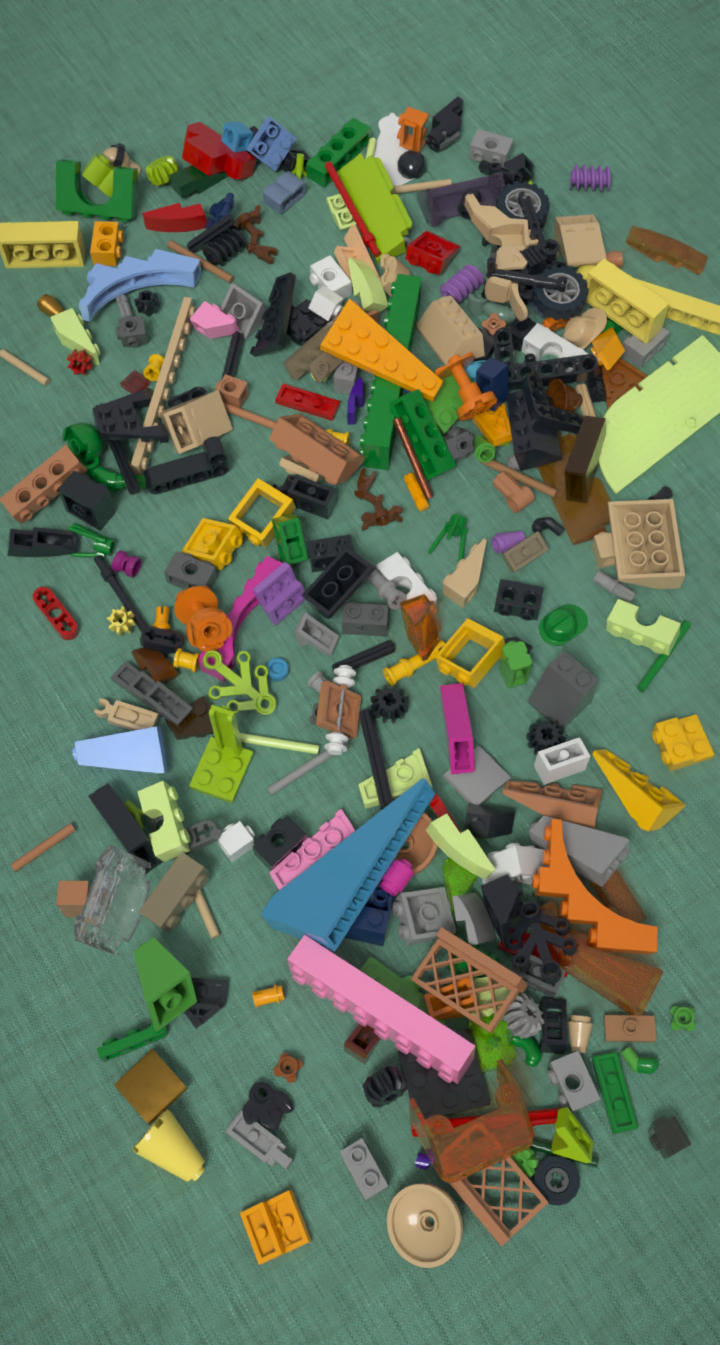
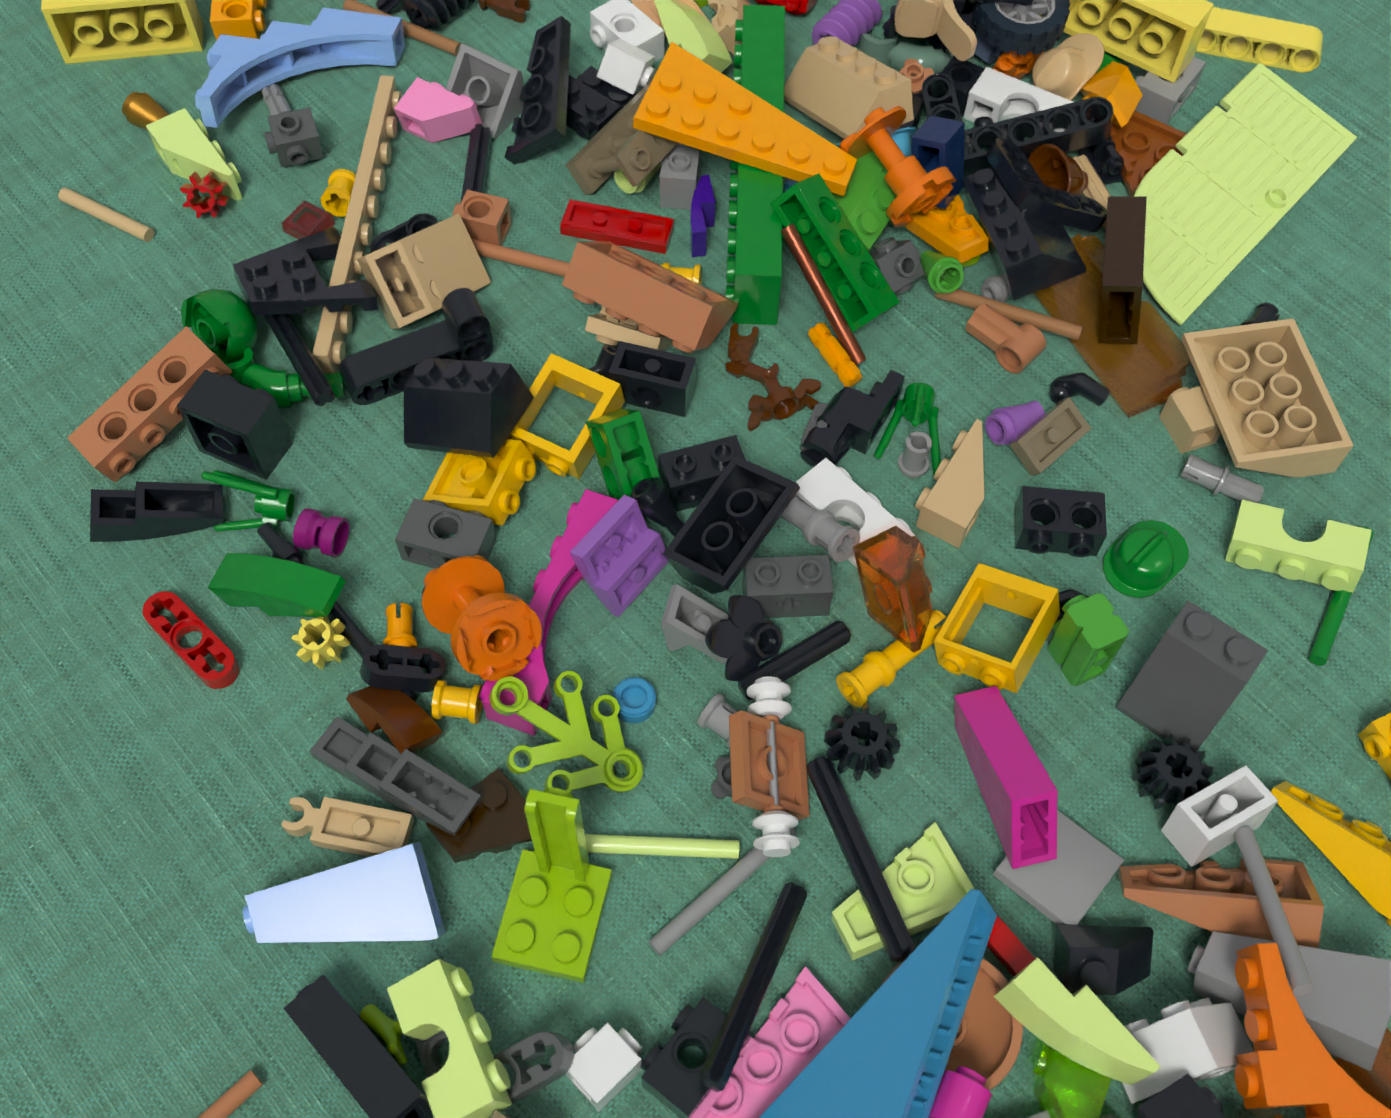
camera: 10 degrees left, 5 degrees down
(100, 590) = (275, 586): none -> green slope
(147, 302) = (317, 93): black gear -> none
(207, 503) = (462, 406): none -> black slope
(301, 567) = (657, 504): none -> black cone
(312, 812) = (752, 988): none -> black axle
(334, 643) = (739, 637): none -> black plate
(416, 531) = (849, 421): none -> black plate
(447, 557) = (914, 459): none -> light grey pin
(569, 806) = (1274, 912): none -> light grey bar

